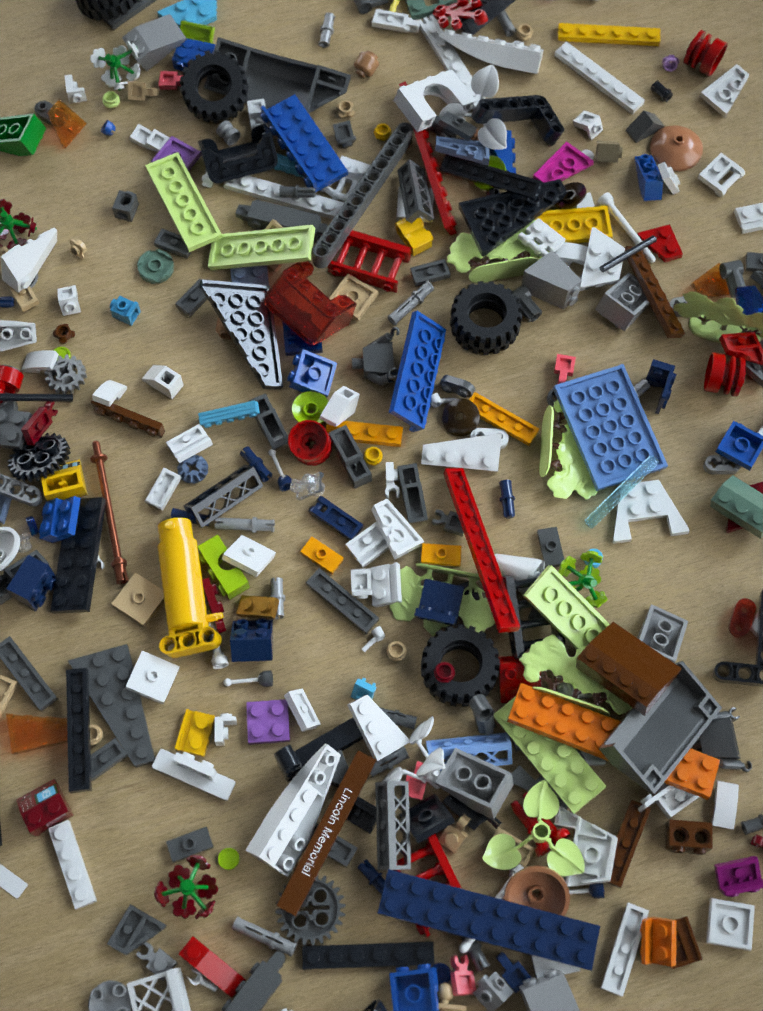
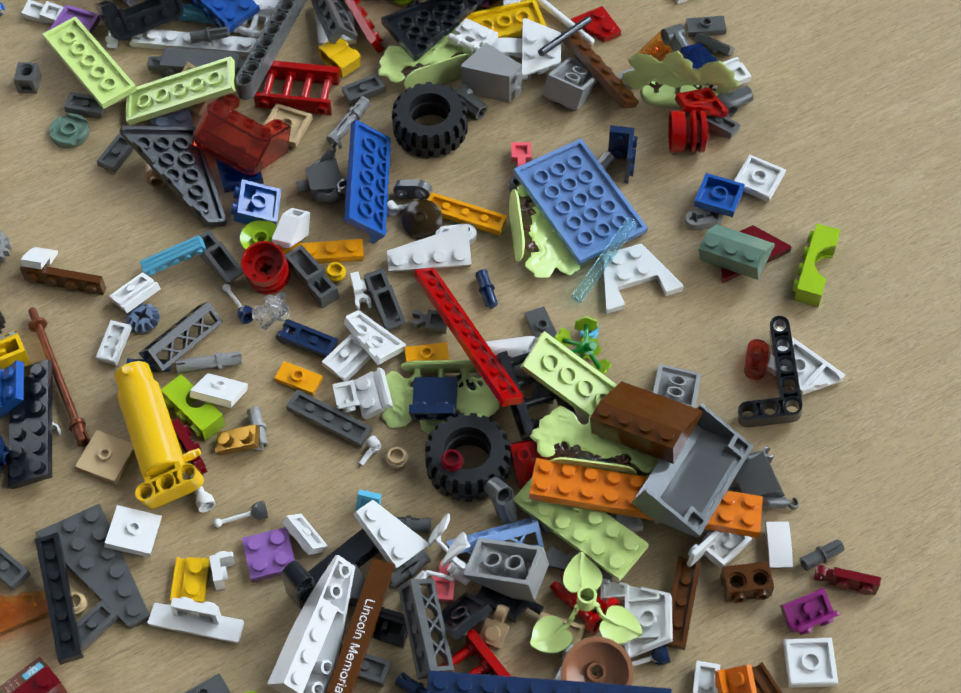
camera: 10 degrees left, 10 degrees down
(125, 310) = (43, 176): dark azure brick -> none
(164, 380) = (97, 236): white slope -> none
(252, 640) = (237, 474): dark blue slope -> none
(257, 462) = (205, 296): dark blue pin -> none

